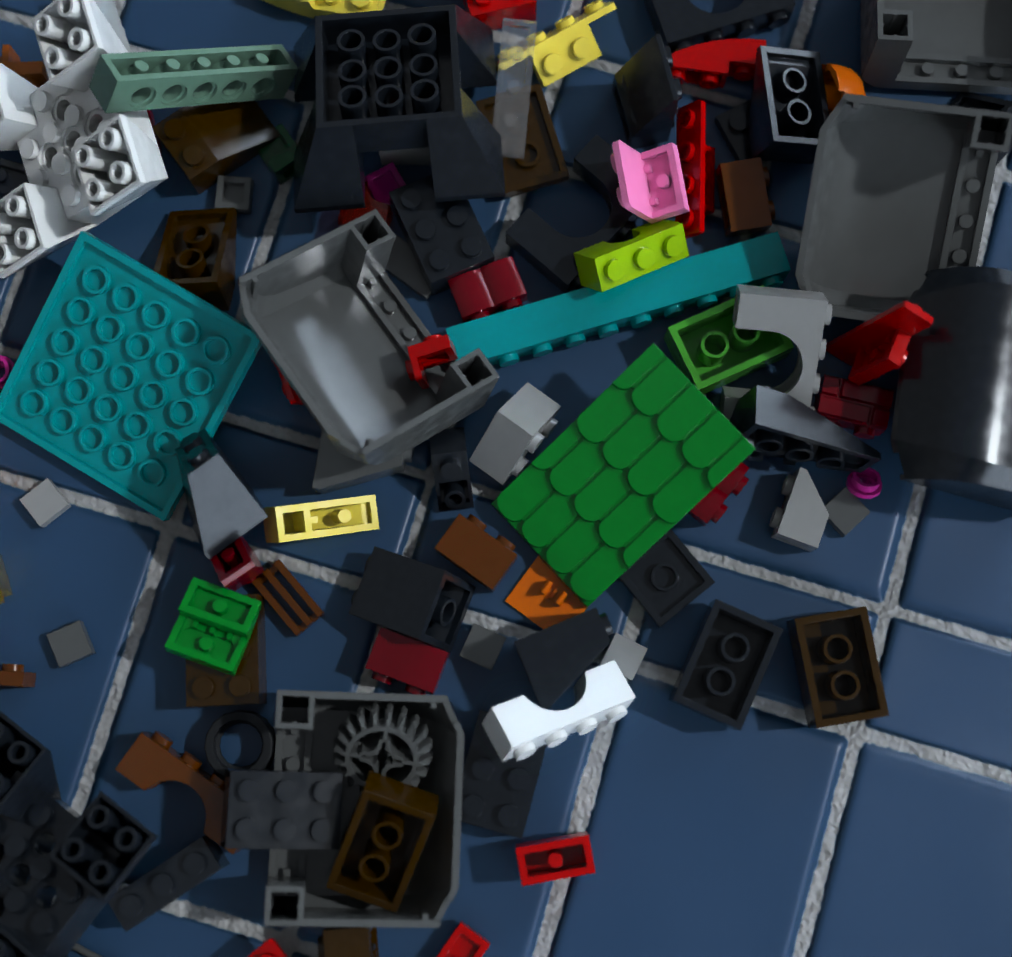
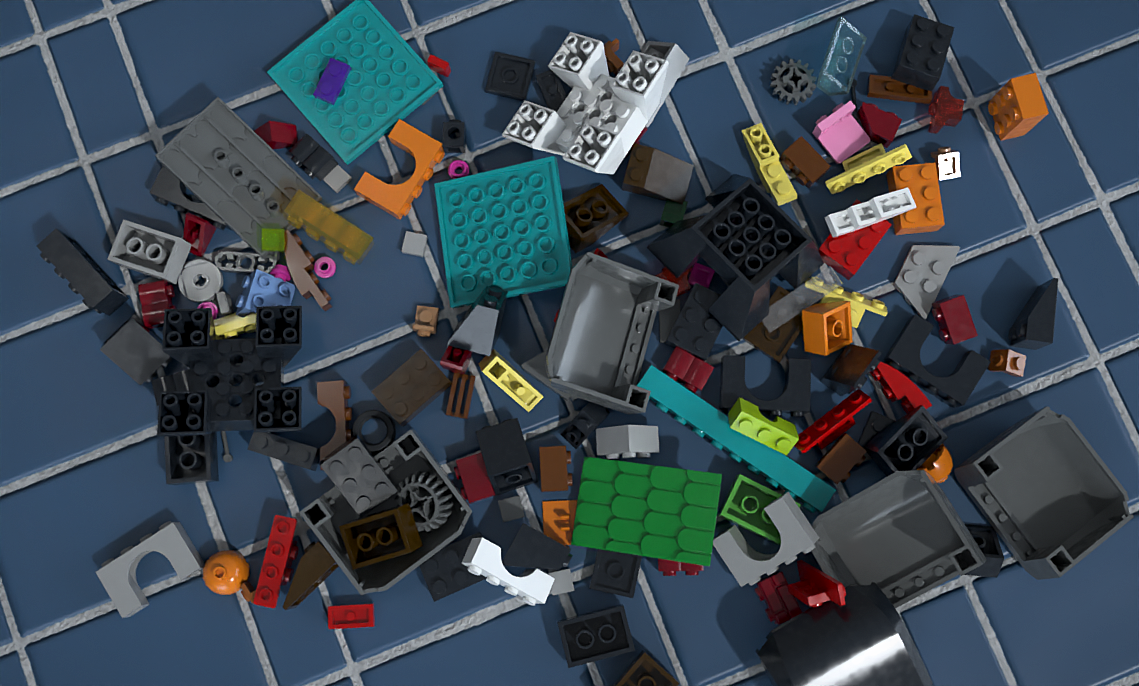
camera: 50 degrees right, 0 degrees up
(71, 644) = (358, 312): dark grey tile -> none
(156, 566) = (426, 321): none -> medium nougat bracket
(191, 77) = (671, 145): sand green brick -> none
(213, 626) = (418, 373): green slope -> none
(235, 192) = (635, 207): dark grey tile -> none
(427, 354) = (632, 368): red bracket -> none
(555, 858) = (437, 625): red brick -> none
(572, 85) = (827, 327): none -> orange slope
(650, 181) = (805, 406): bright pink bracket -> none
(792, 431) = (735, 569): black wedge -> none
(802, 513) = (702, 615): light grey slope -> none
(845, 511) = (721, 636): dark grey tile -> none
(865, 484) = (744, 635): dark pink plate -> none

